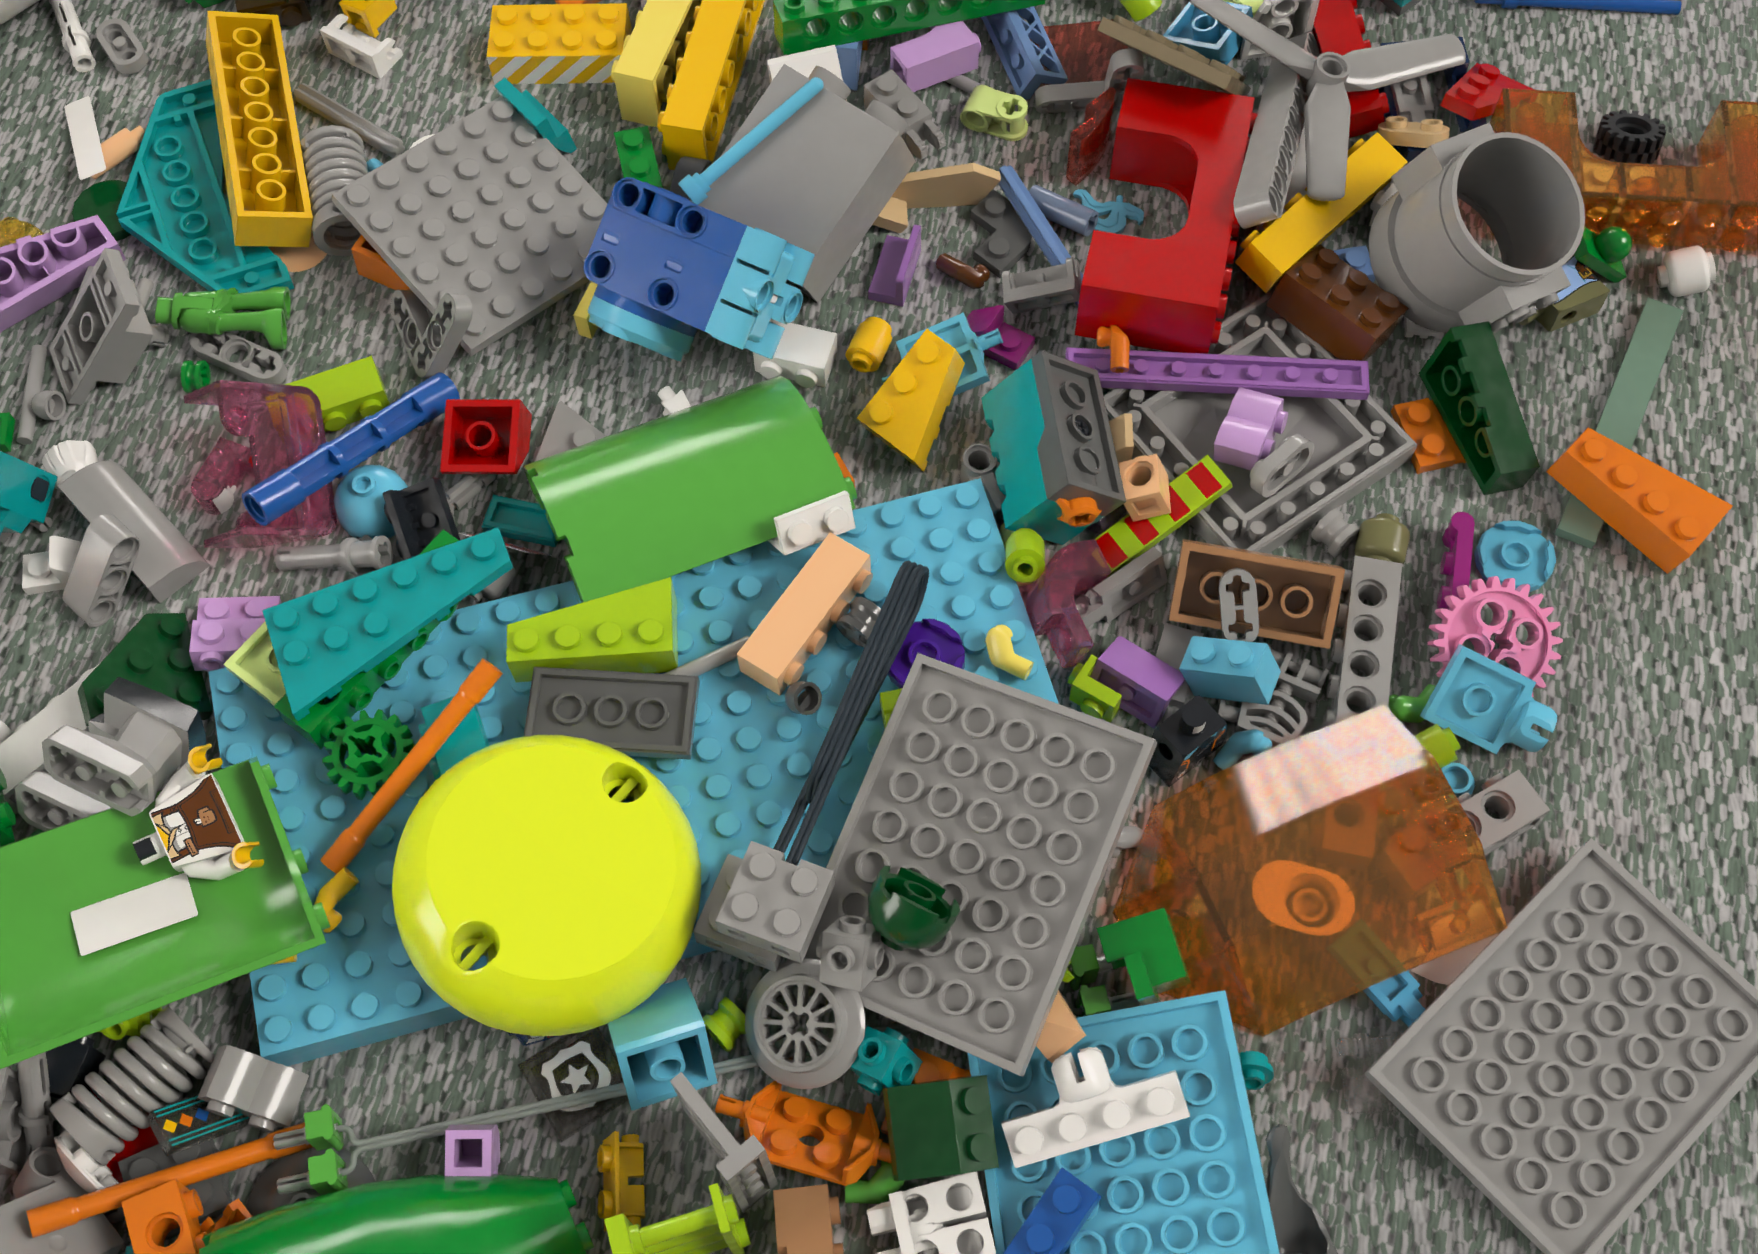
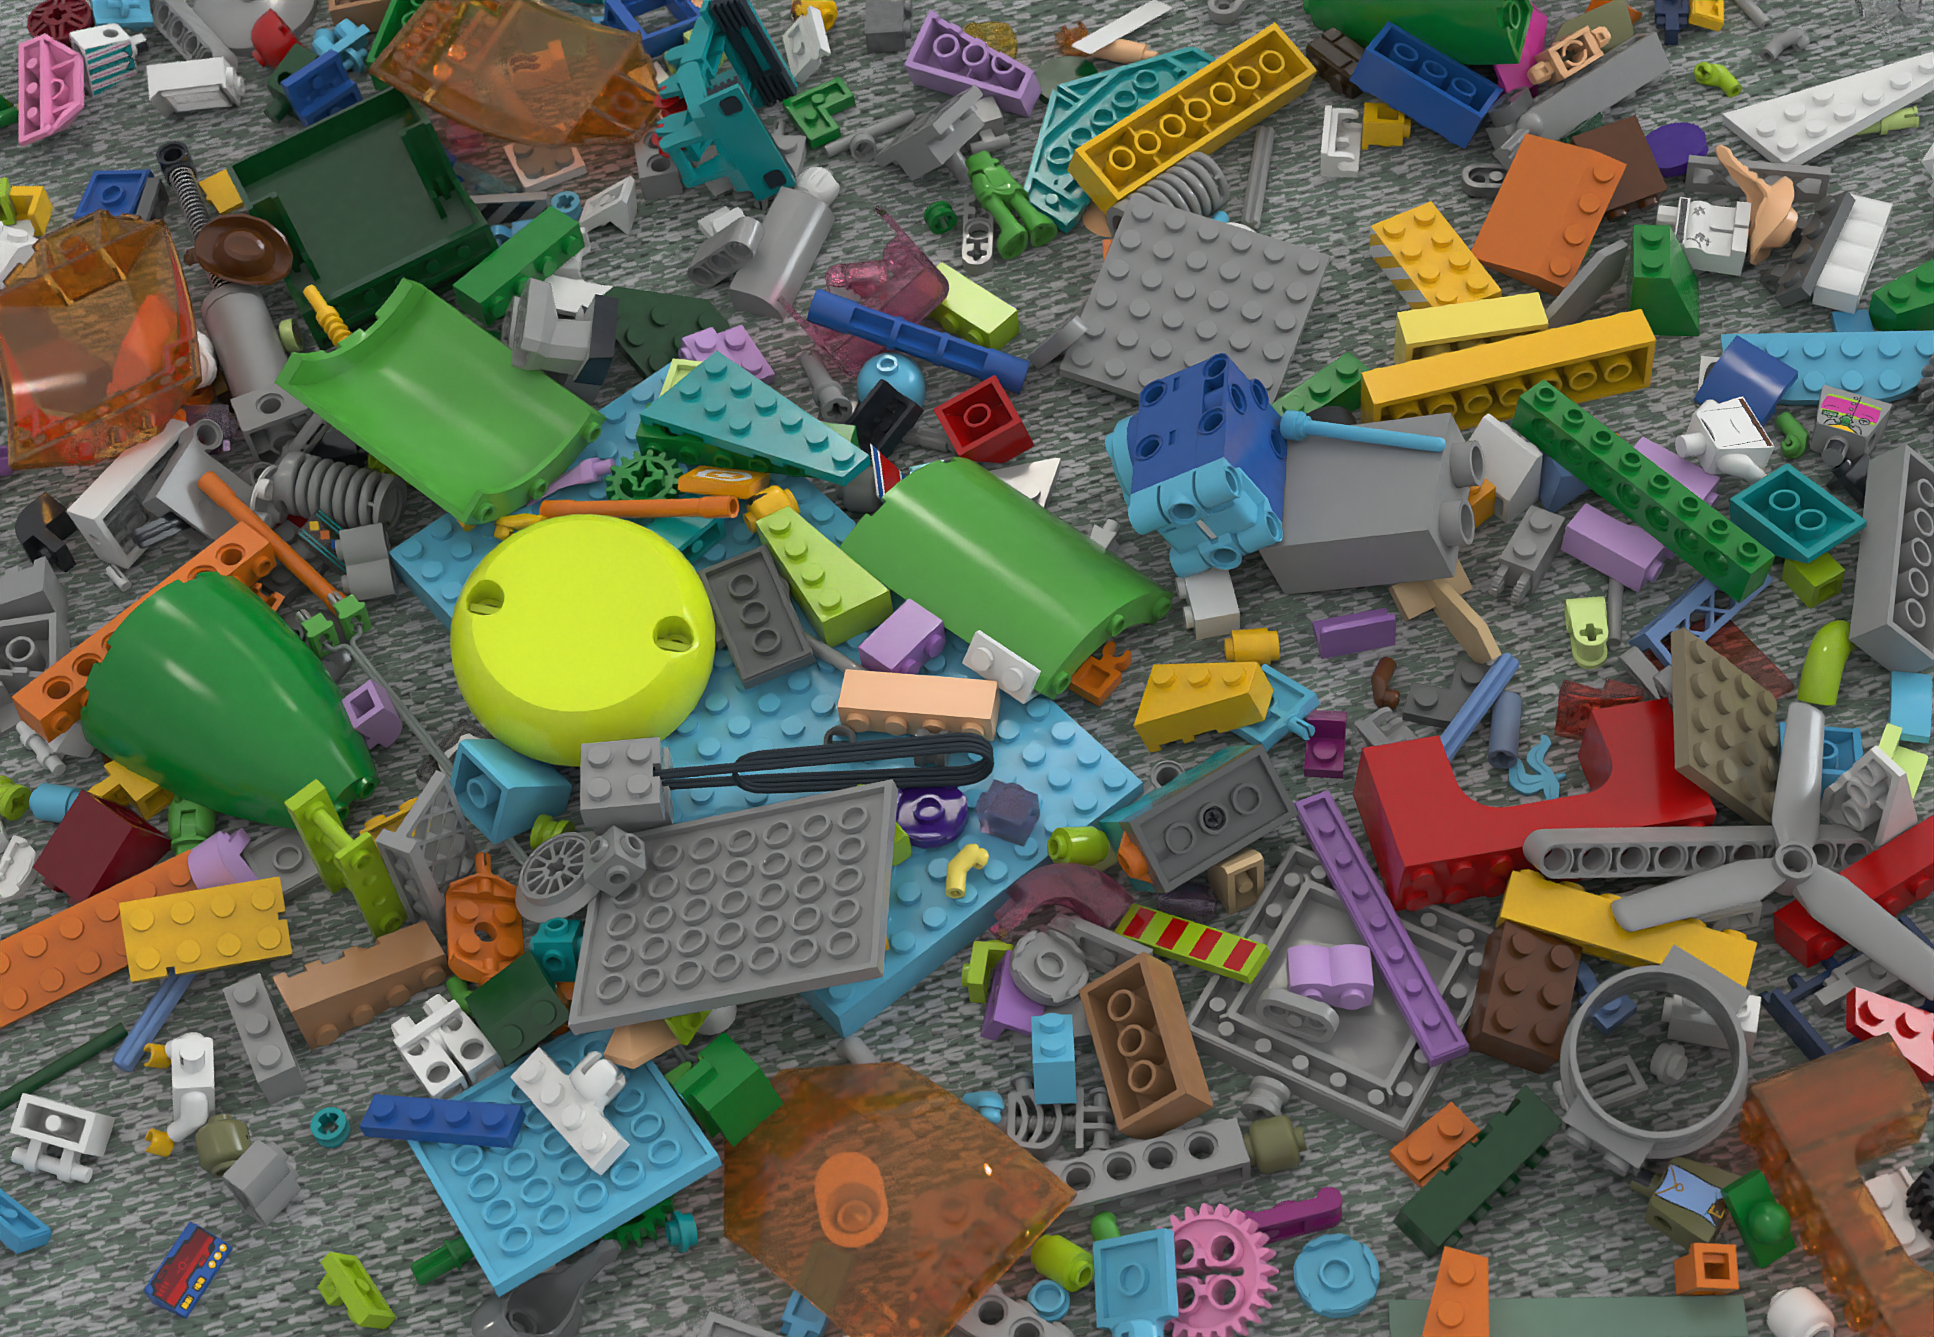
camera: 70 degrees right, 10 degrees down
(64, 183) = (1067, 37): none -> clear orange tile
(133, 914) = (447, 412): white sticker -> none
(196, 825) = (526, 407): torso -> none
(304, 815) = (586, 472): none -> lavender bar
(426, 675) = (723, 482): none -> light orange tile
(485, 640) = (767, 502): none -> yellow head
(537, 116) = (1332, 293): teal slope -> none
(726, 597) = (904, 641): none -> brick
(909, 910) = (664, 876): dark green cylinder -> none
(970, 588) = (1008, 812): none -> clear purple brick
(1119, 347) = (1353, 818): orange arm -> none
(1127, 637) = (1048, 967): none -> light grey tile
(1145, 487) = (1202, 909): light nougat brick -> none
(1191, 736) = (967, 1054): black torso -> none
(1249, 605) = (1110, 1030): light grey beam -> none
(1413, 134) = (1799, 987): tan plate -> none
(1630, 306) = (1707, 1270): none -> orange brick

